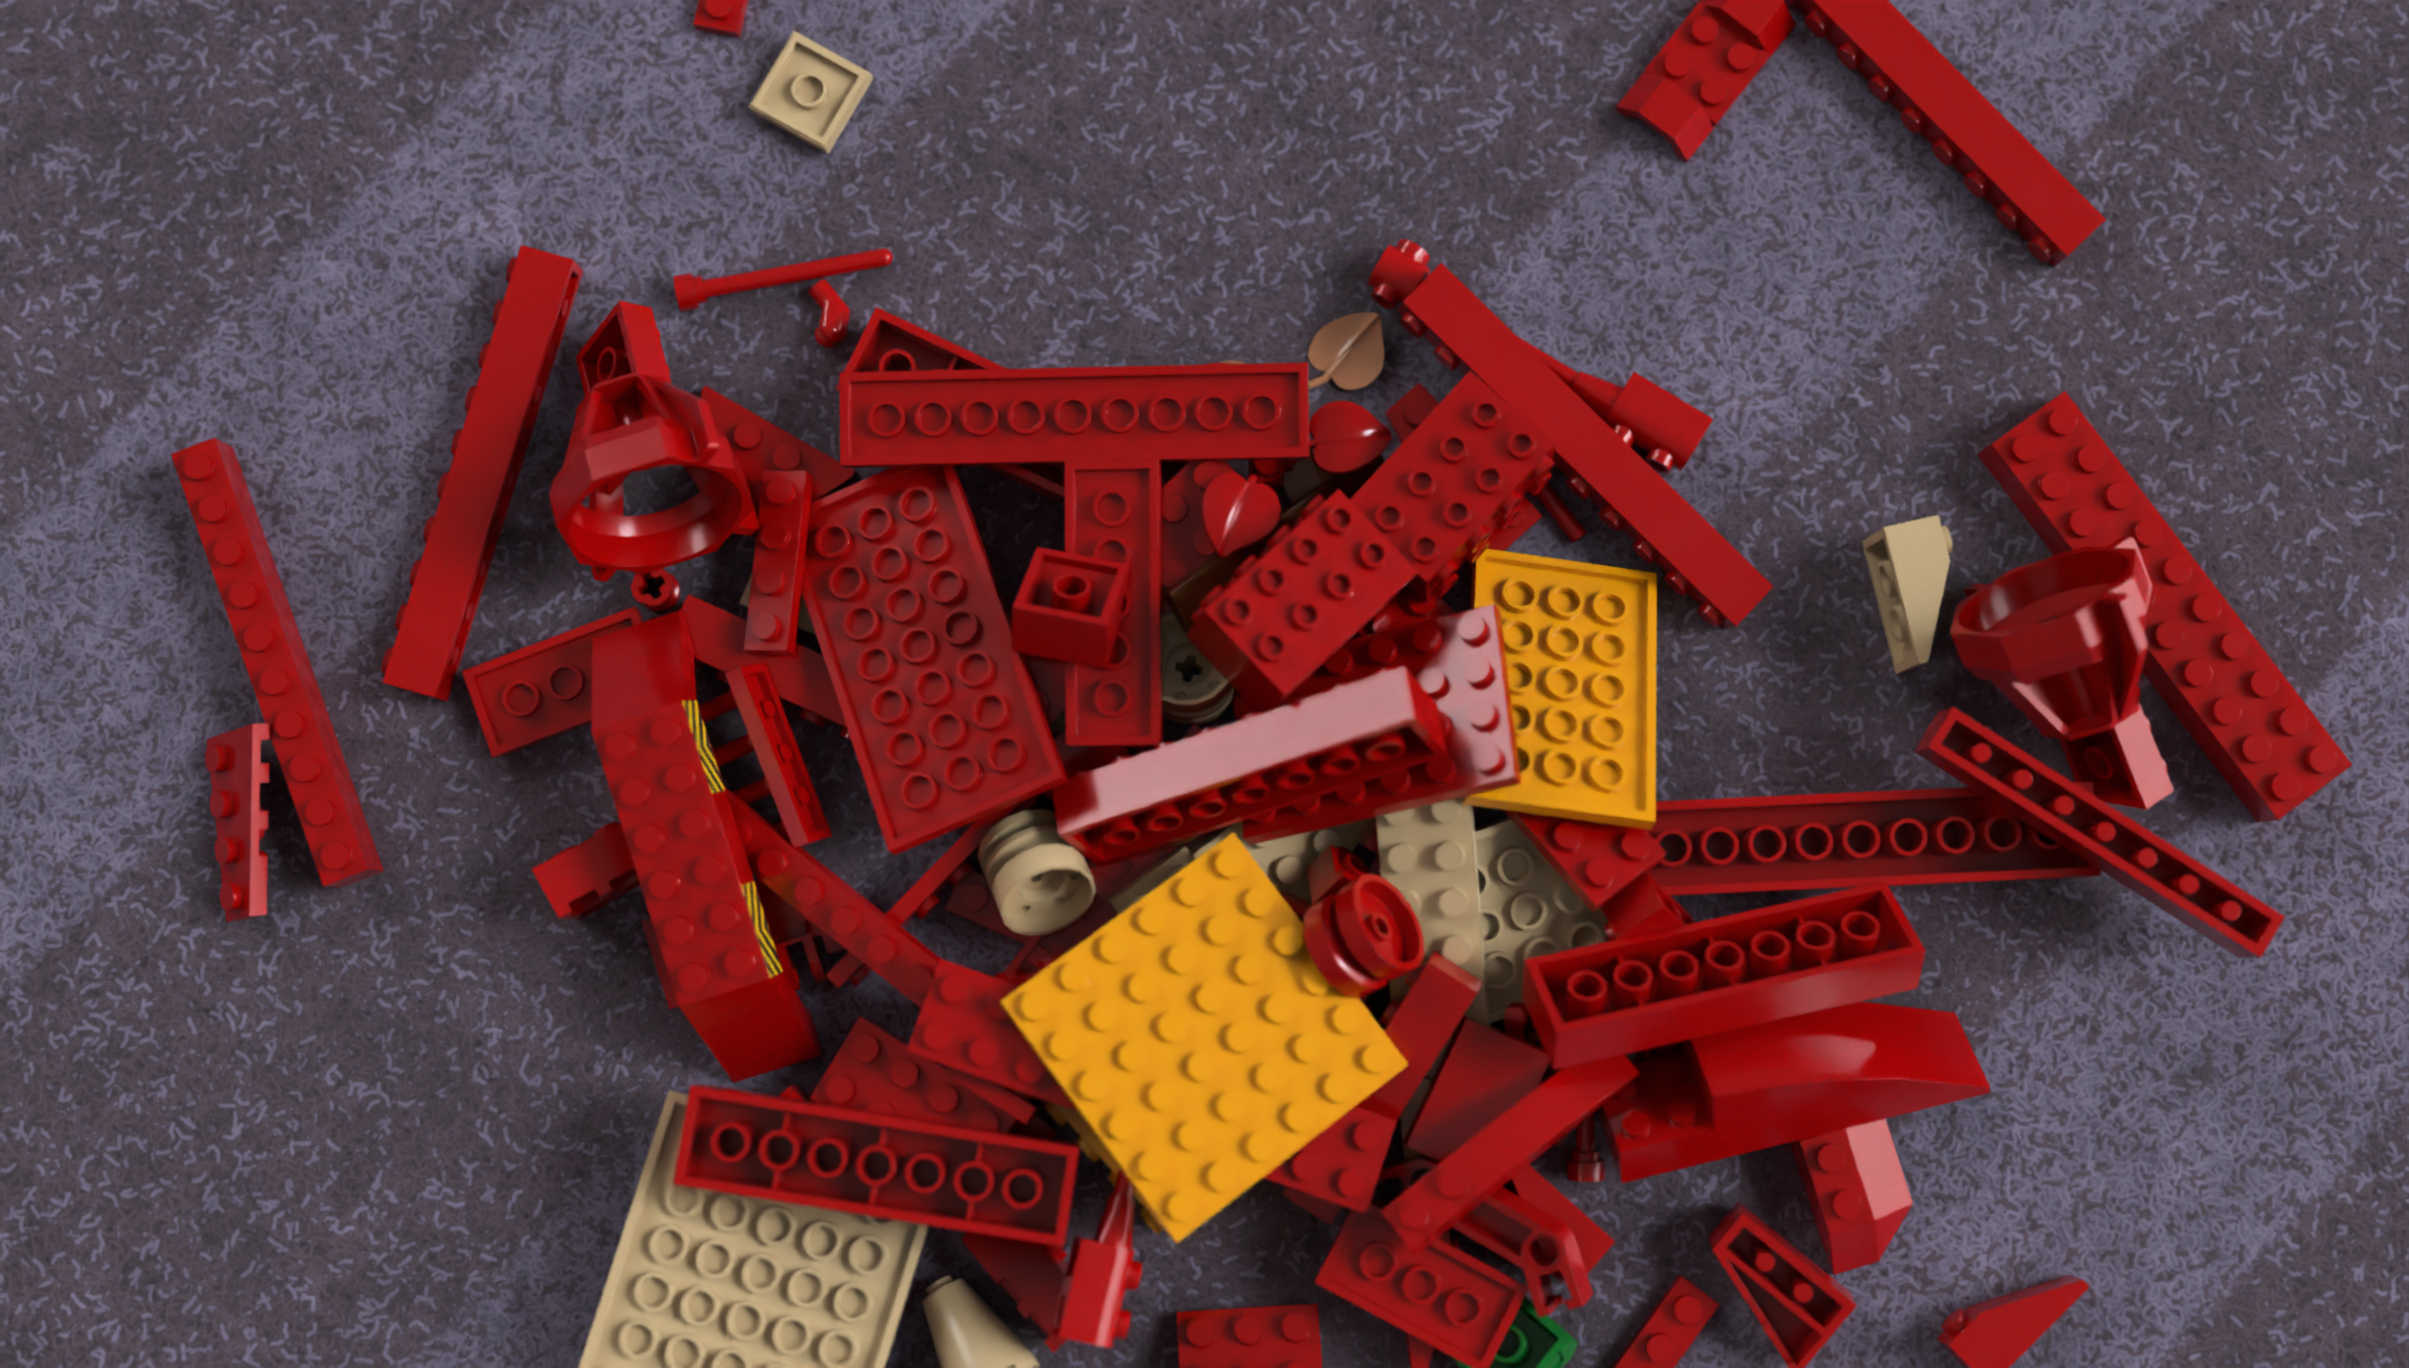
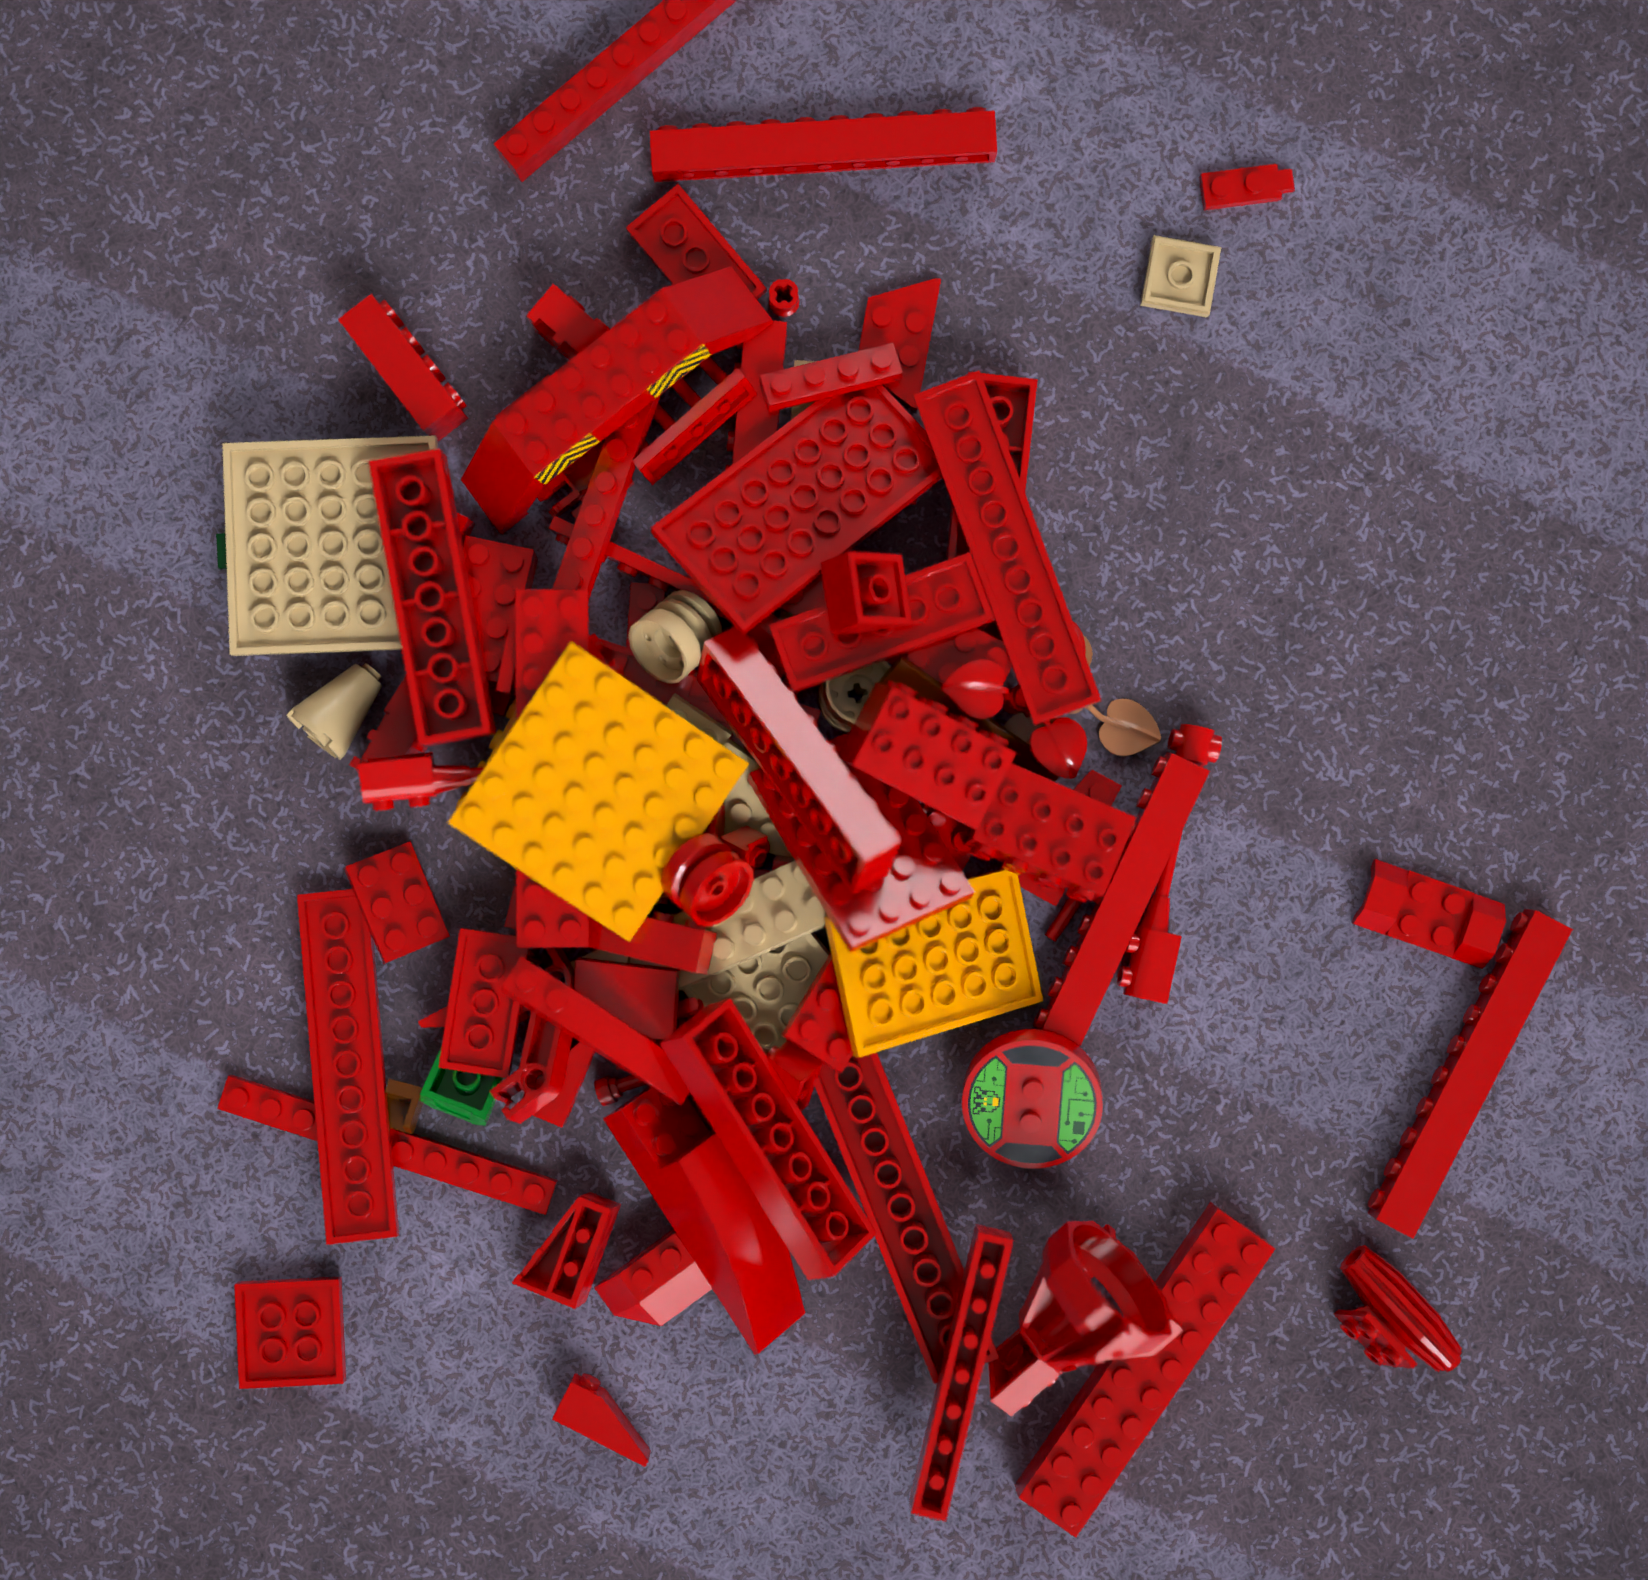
camera: 65 degrees right, 5 degrees up
(239, 818) = (519, 69): red wing -> none
(559, 1105) = (399, 362): none -> red brick
(632, 424) = (889, 242): red plate -> none
(695, 290) = (1006, 245): red piece -> none
(834, 315) = (1023, 353): red arm -> none
(1776, 627) = (1032, 1098): none -> piece
(1909, 579) = (1099, 1182): tan slope -> none
(2195, 277) = (1394, 1317): none -> red plate

